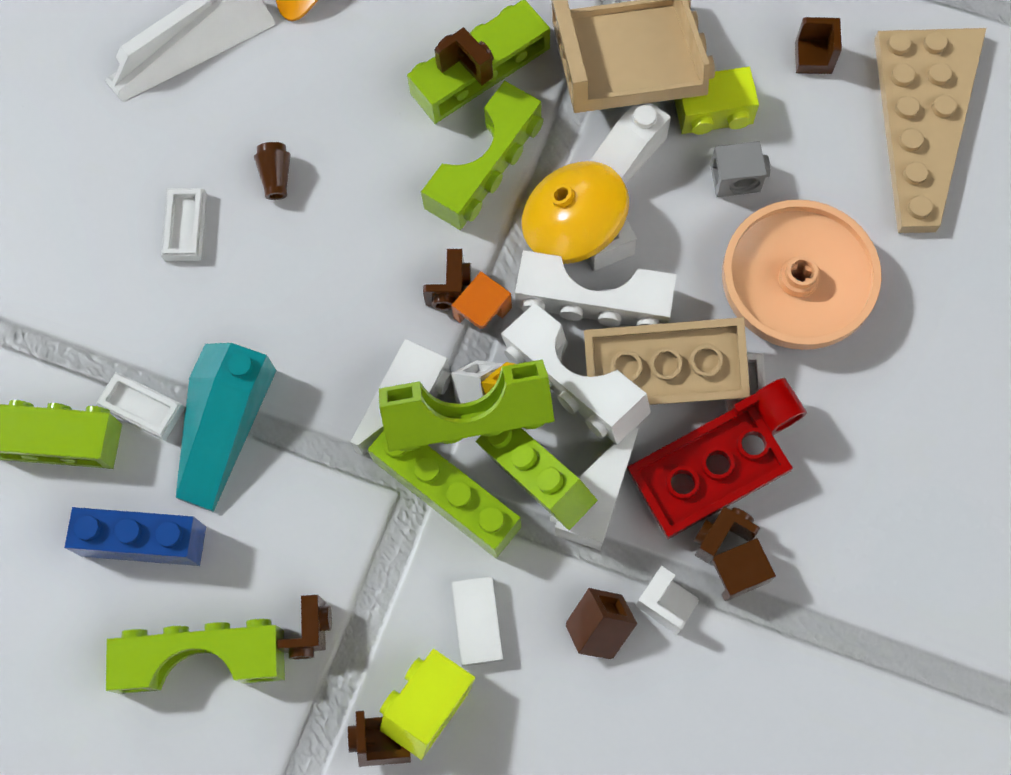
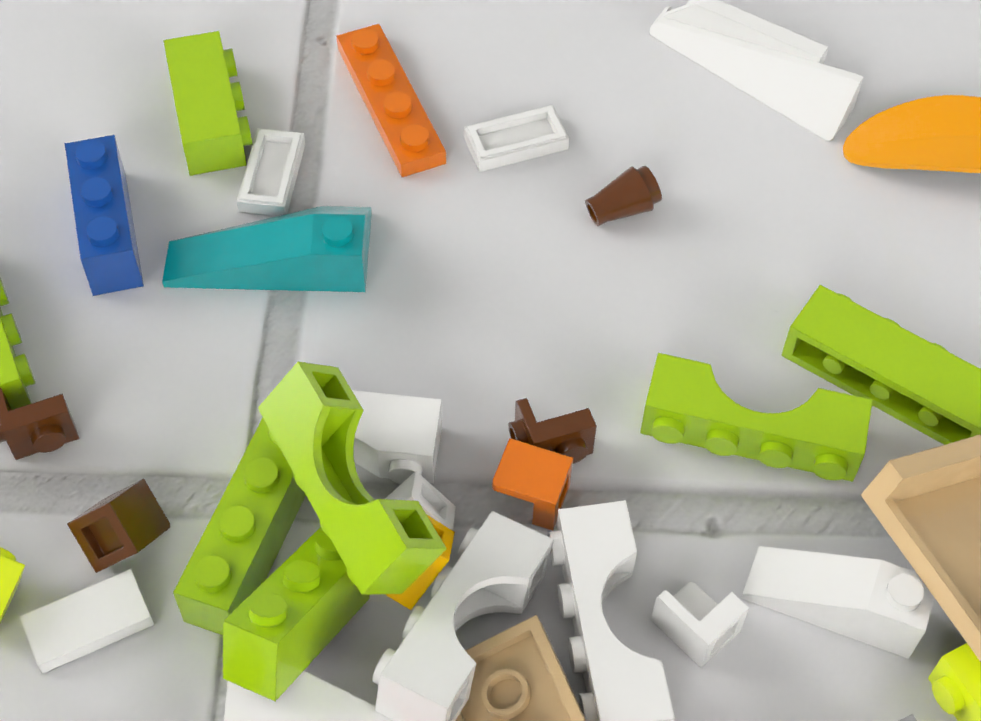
camera: 65 degrees right, 15 degrees down
(105, 300) = (391, 100): none -> orange plate
(415, 582) = (119, 525): none -> reddish brown panel
(465, 49) = (880, 321): reddish brown bracket -> none
(575, 211) = (719, 555): yellow dish -> none

